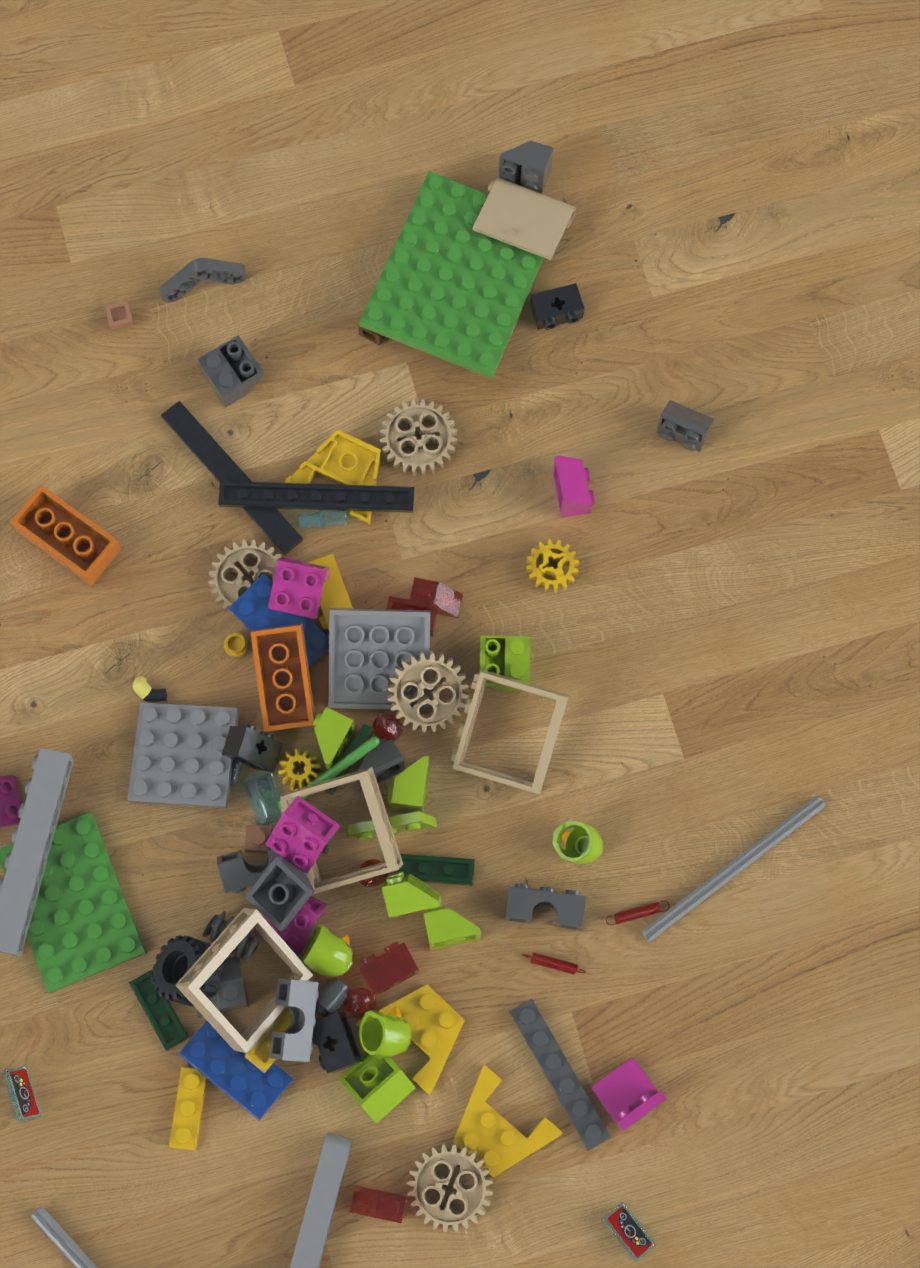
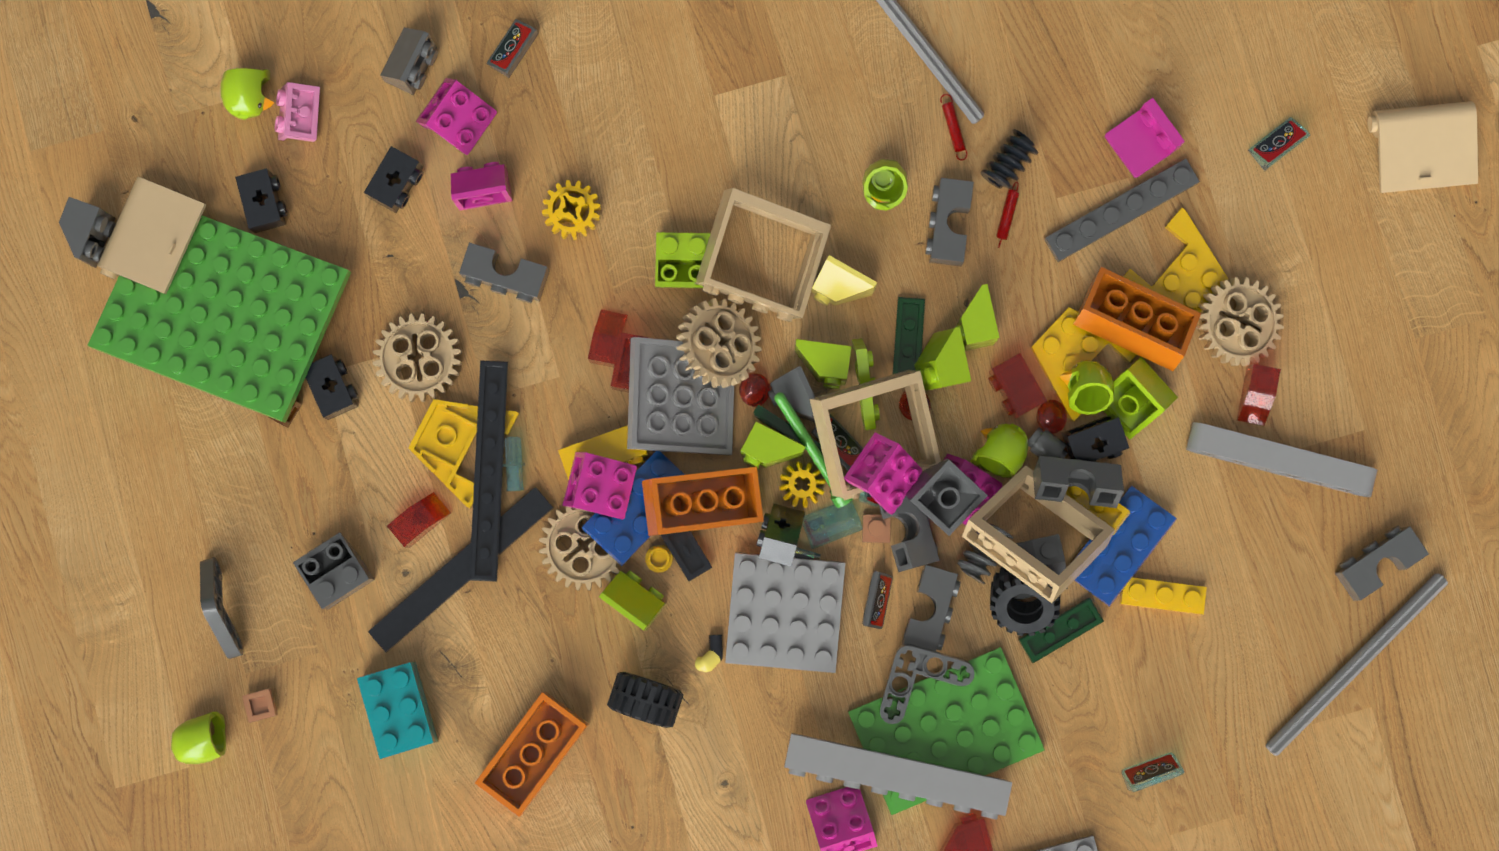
camera: 85 degrees left, 10 degrees up
(87, 260) = (193, 739): none -> lime piece
(107, 628) = (645, 699): none -> black tyre
(109, 424) = (397, 709): none -> teal brick
(126, 872) = (919, 667): none -> dark grey beam
(192, 838) = (877, 600): none -> slope
(197, 619) = (633, 600): none -> lime slope
(202, 894) = (940, 587): none -> dark grey arch
(237, 670) = (687, 554): none -> black plate
(274, 440) = (418, 520): none -> clear red slope
(341, 802) = (846, 445): none -> slope
(399, 356) = (318, 378): none -> black brick
(451, 1082) = (1137, 319): none -> orange brick
(484, 801) = (841, 284): none -> light yellow slope
(499, 489) = (526, 281): none -> dark grey arch
(570, 405) = (394, 165): none -> black brick
(604, 964) = (1009, 160): none -> black piece
(636, 336) = (297, 112): none -> bright pink bracket
(636, 467) = (457, 115): none -> dark pink bracket
(651, 289) = (242, 92): none -> lime piece
(700, 515) = (512, 48): none -> slope

